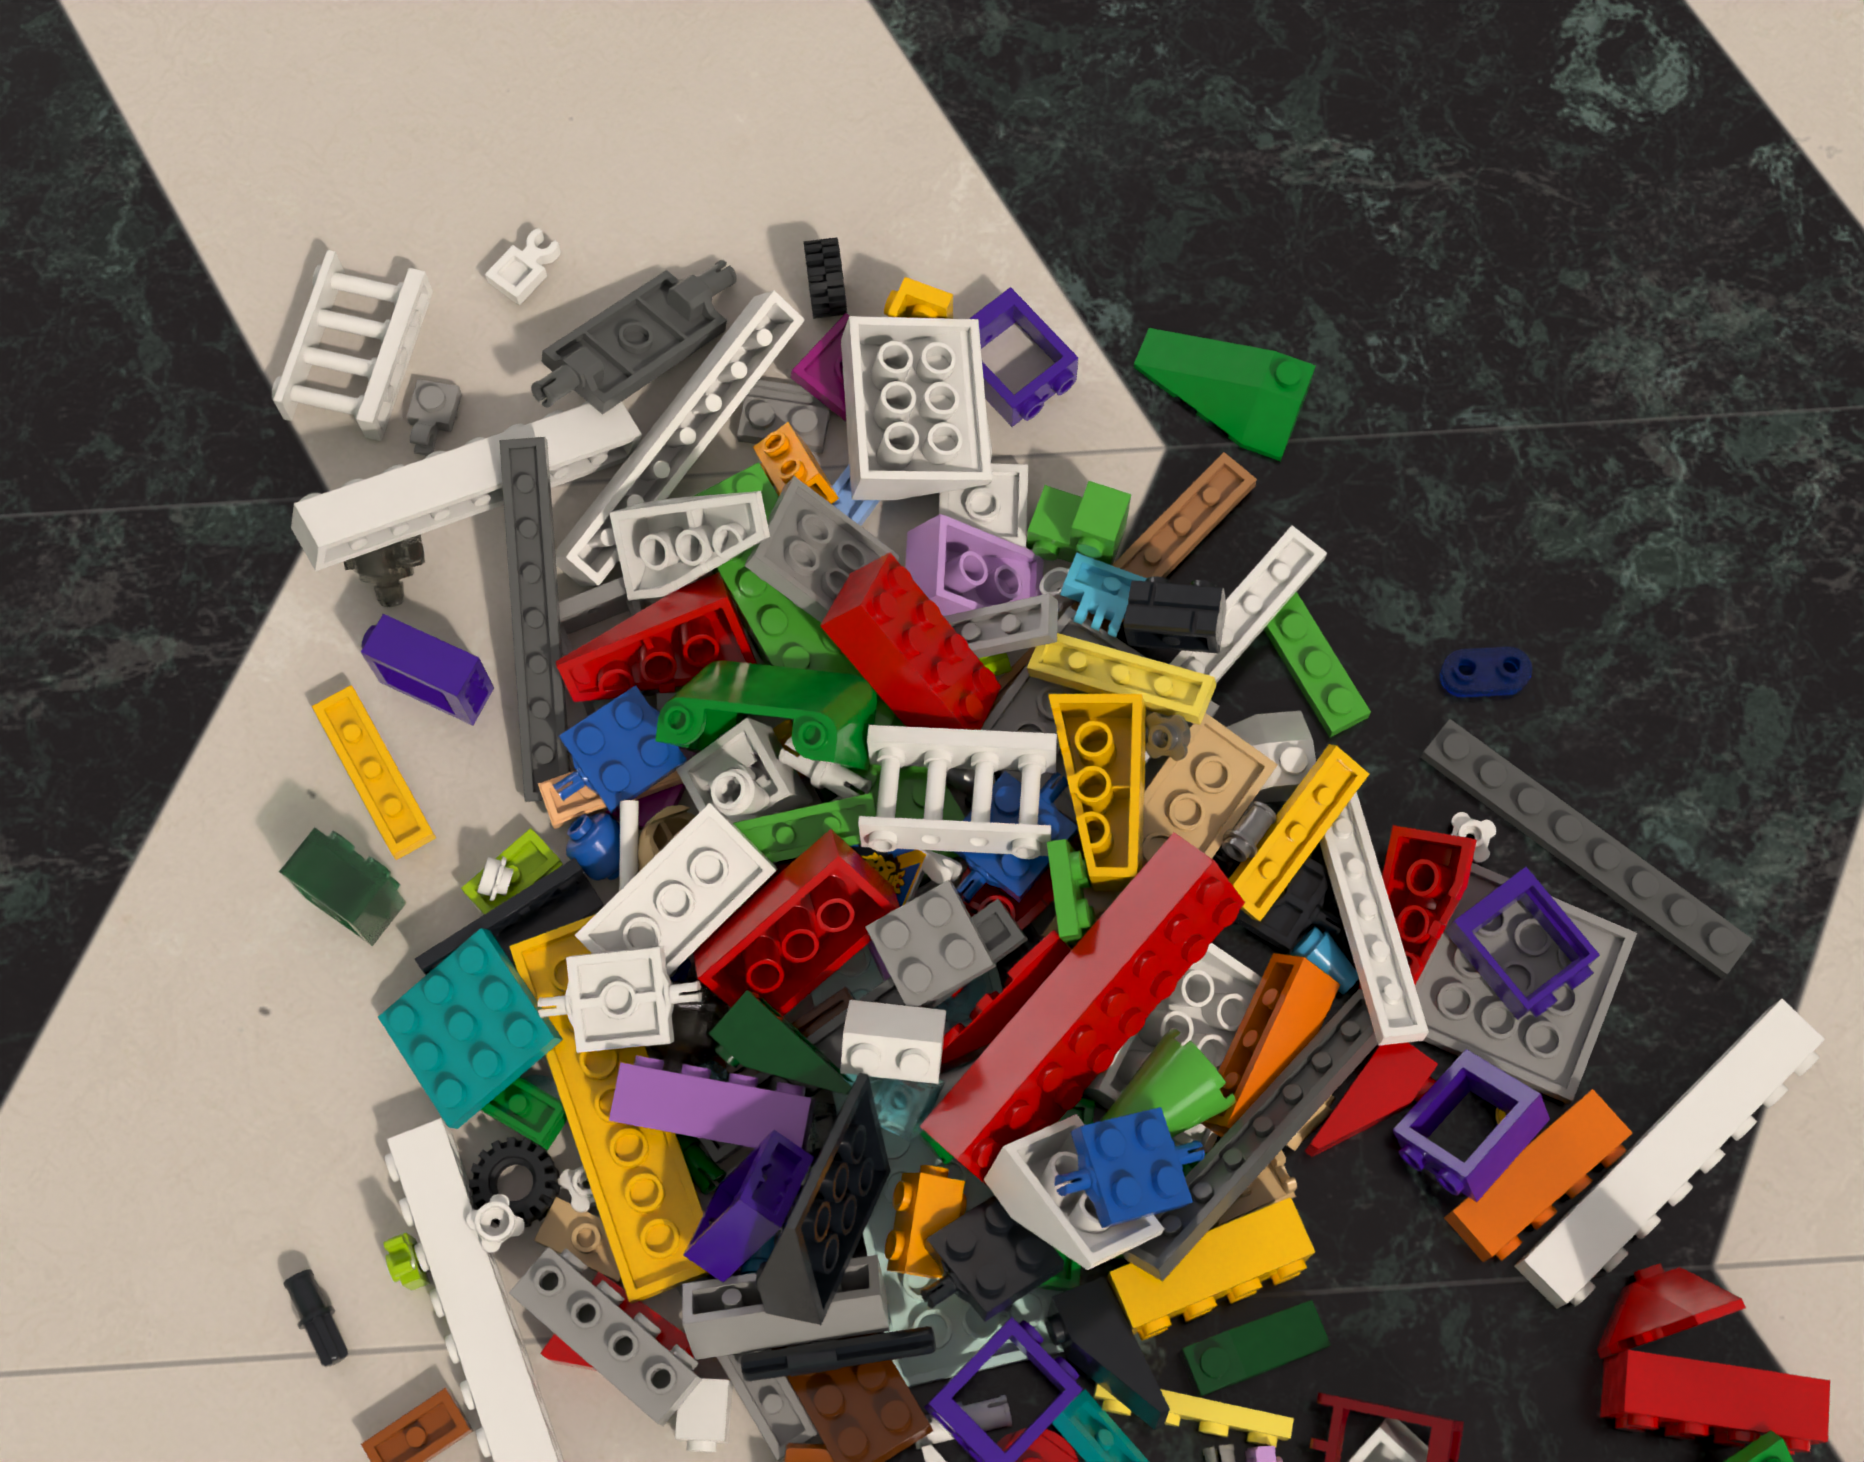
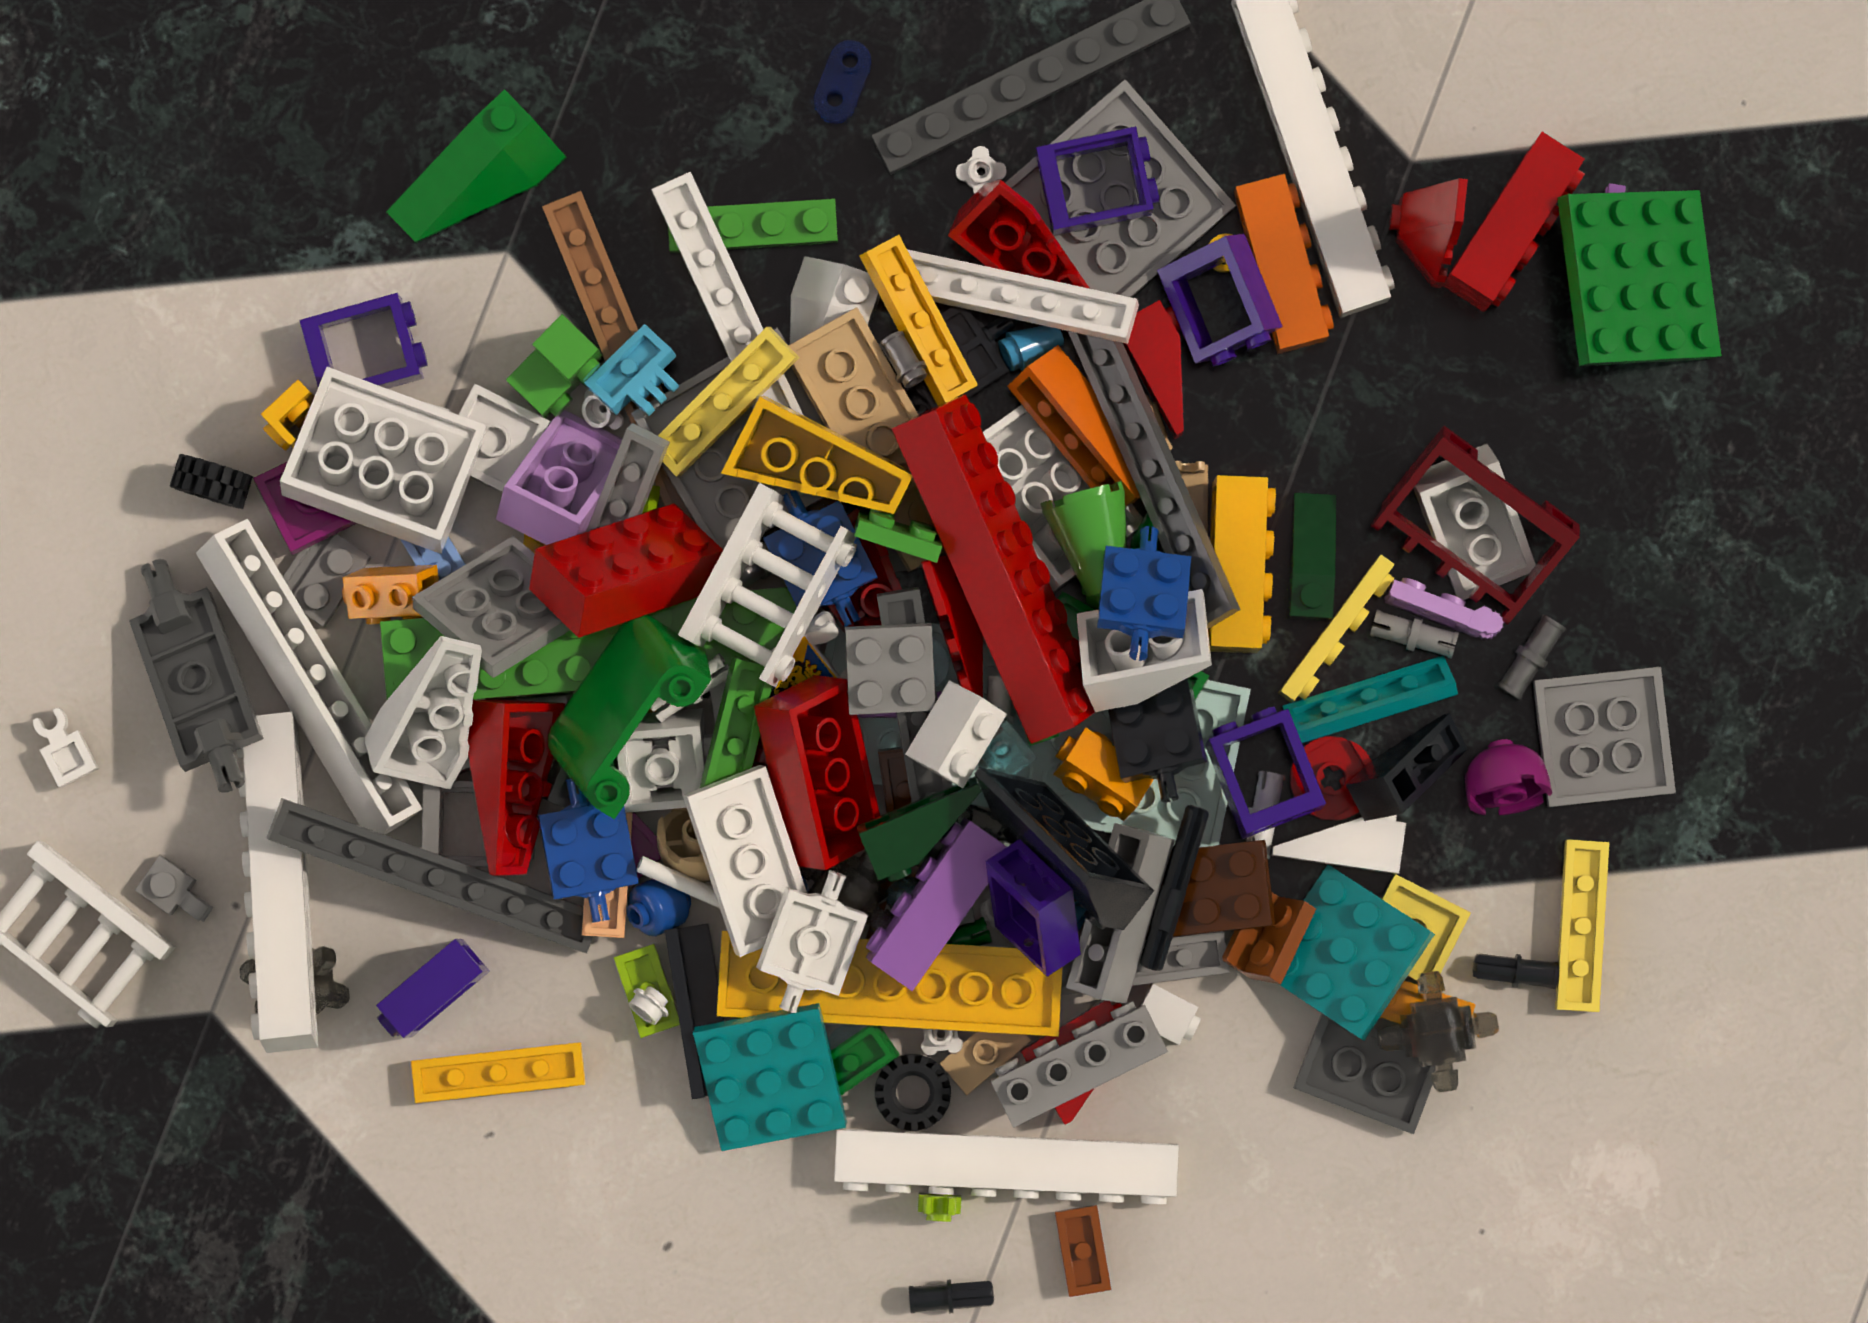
camera: 70 degrees left, 15 degrees up
(343, 885) = (599, 1134): clear green brick -> none
(481, 1220) = (950, 1108): white plate -> none
(738, 794) = (686, 770): white cone -> none
(1103, 1346) = (1258, 677): black slope -> none
(1175, 615) = (691, 329): black brick -> none
(1178, 736) = (800, 381): flat silver plate -> none

